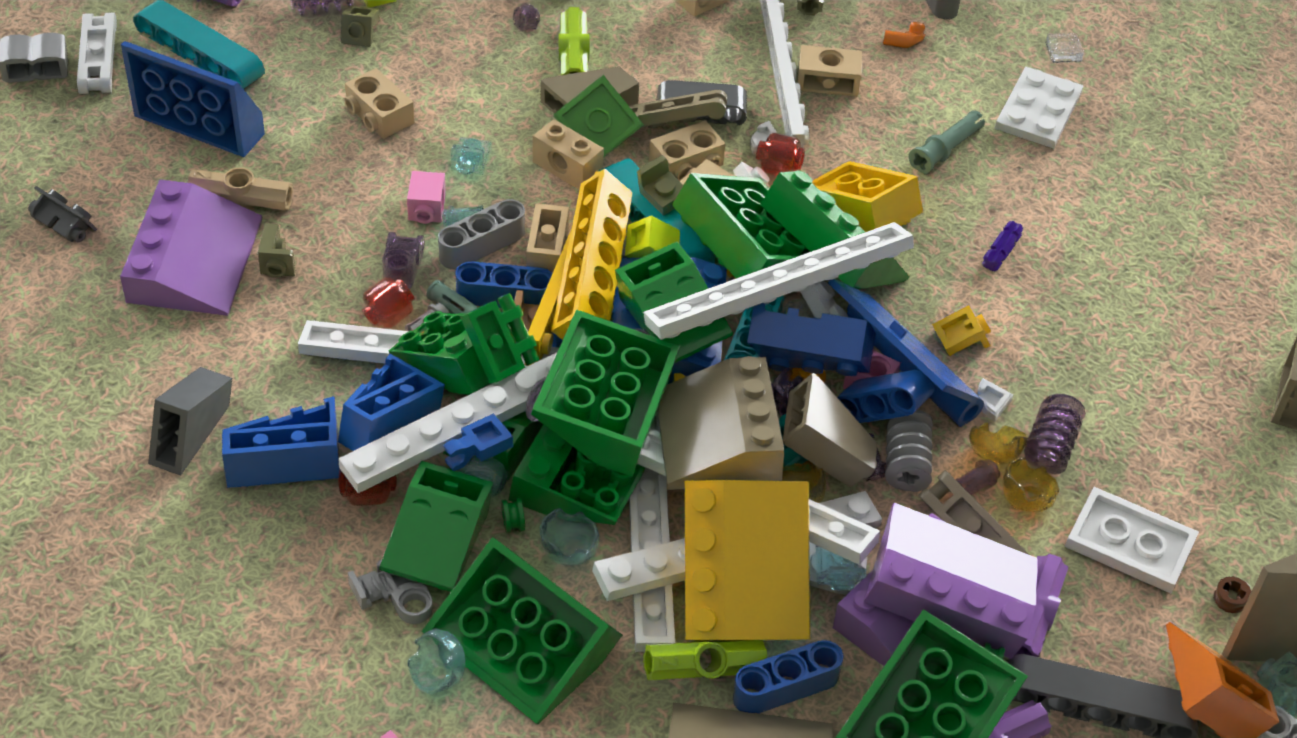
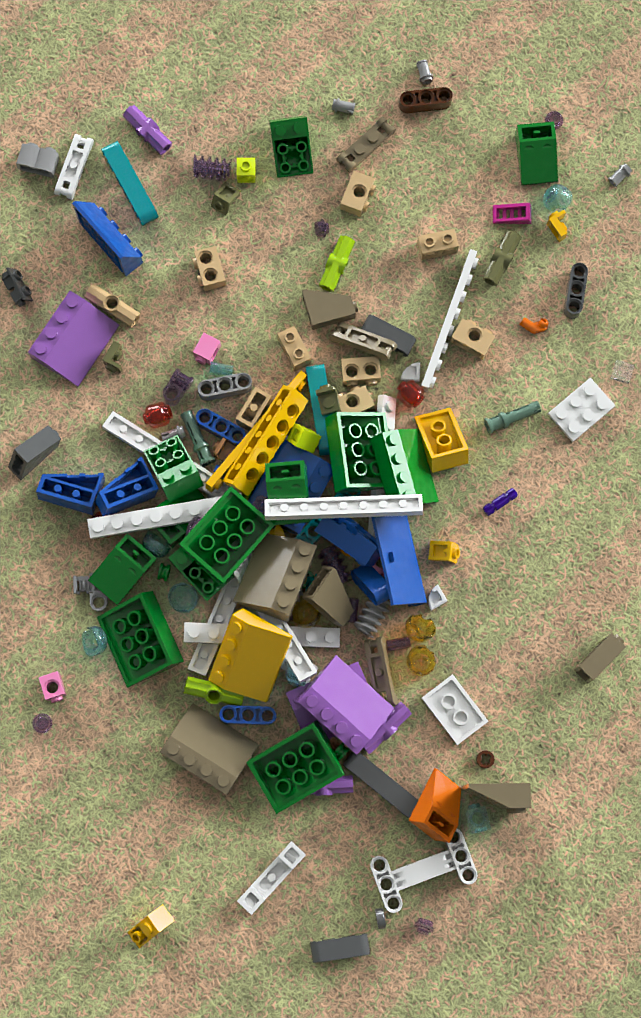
camera: 25 degrees right, 30 degrees up
(470, 155) = (244, 324): clear light blue bracket -> none
(479, 438) = (159, 536): blue plate -> none
(493, 341) = (184, 485): green plate -> none
(600, 116) = (319, 333): bright green tile -> none
(1054, 433) = (451, 634): piece -> none

